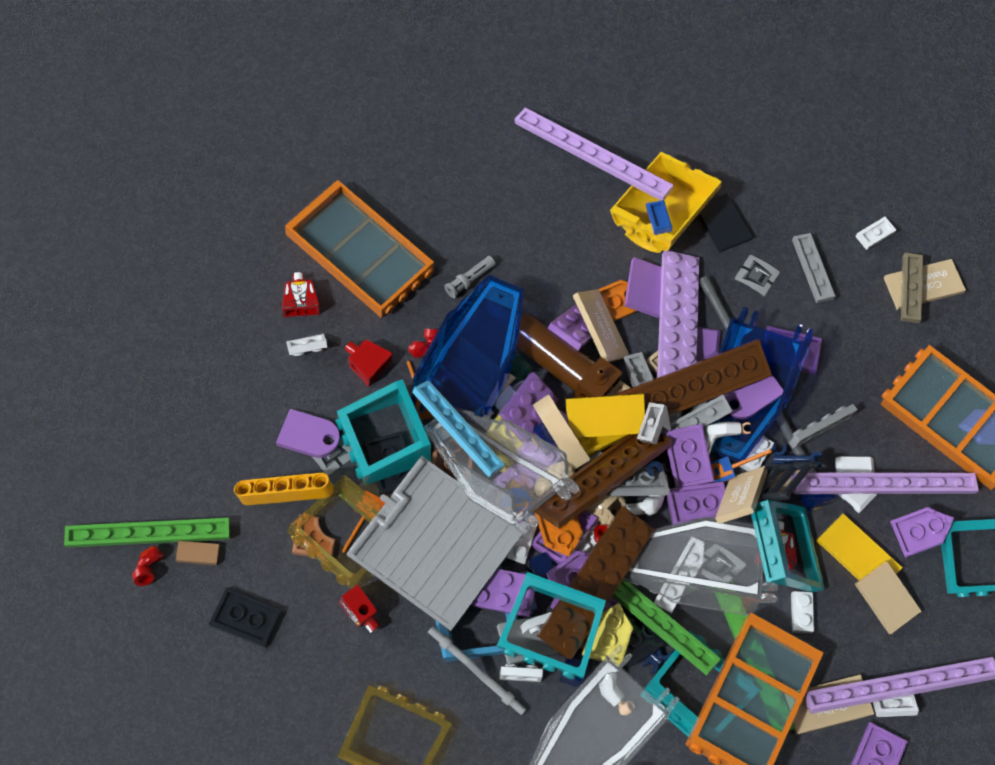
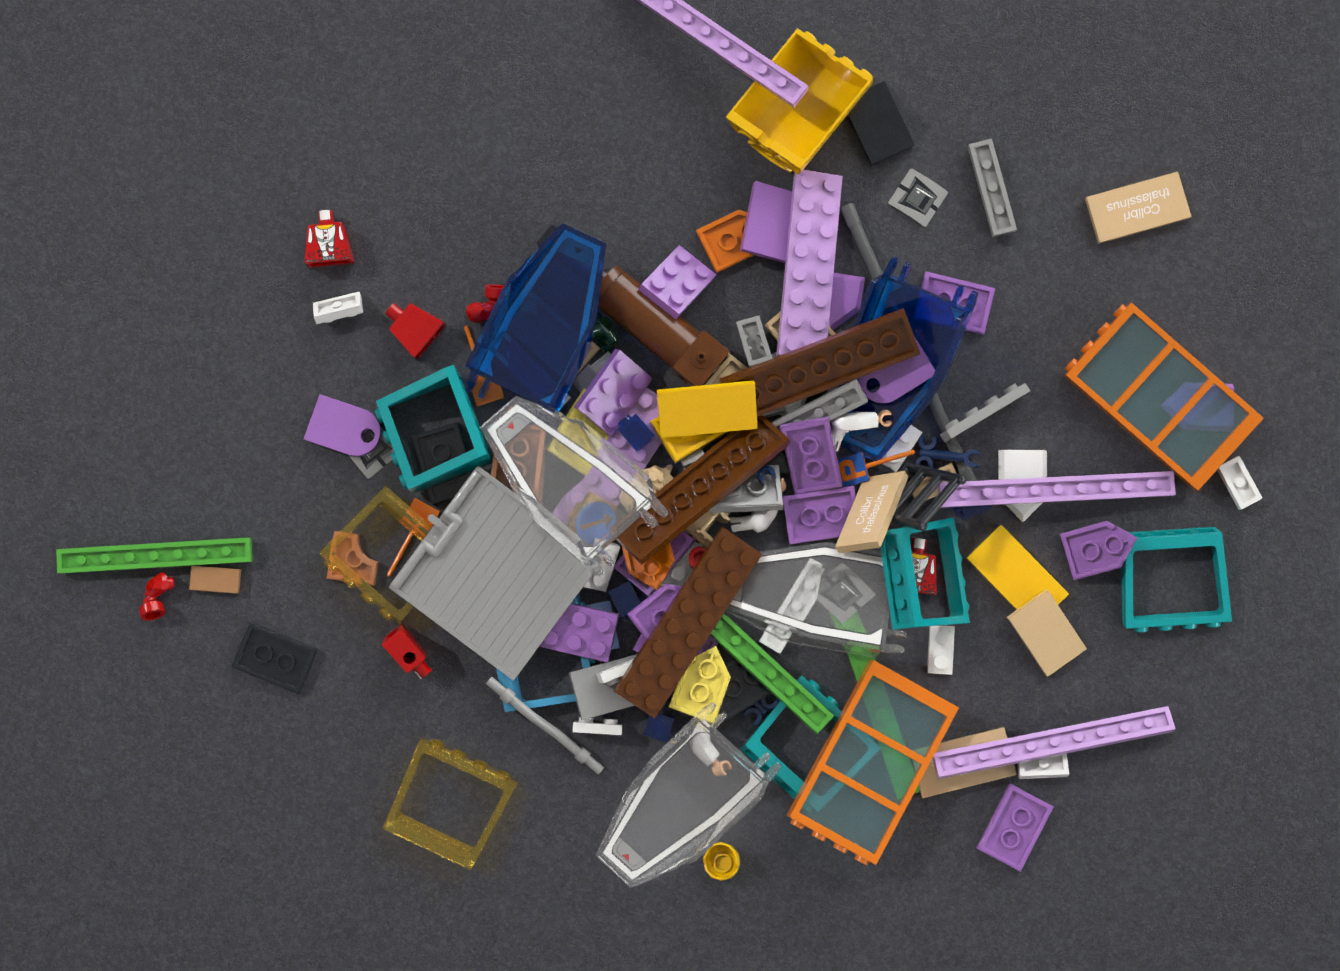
camera: 10 degrees right, 20 degrees up
(275, 485) = (323, 506): light orange beam -> none
(360, 249) = (402, 172): clear light blue window -> none
(458, 428) = (522, 430): medium azure plate -> none
(464, 280) = (536, 215): light grey pin -> none
(561, 432) = (649, 431): tan slope -> none
(562, 593) = (644, 647): teal windscreen -> none
(601, 325) = (708, 281): tan tile -> none
(654, 421) = (767, 416): light grey slope -> none
(659, 217) = (787, 132): blue tile -> none
(875, 233) = (1080, 135): white plate -> none
(911, 287) = (1118, 217): dark tan plate -> none

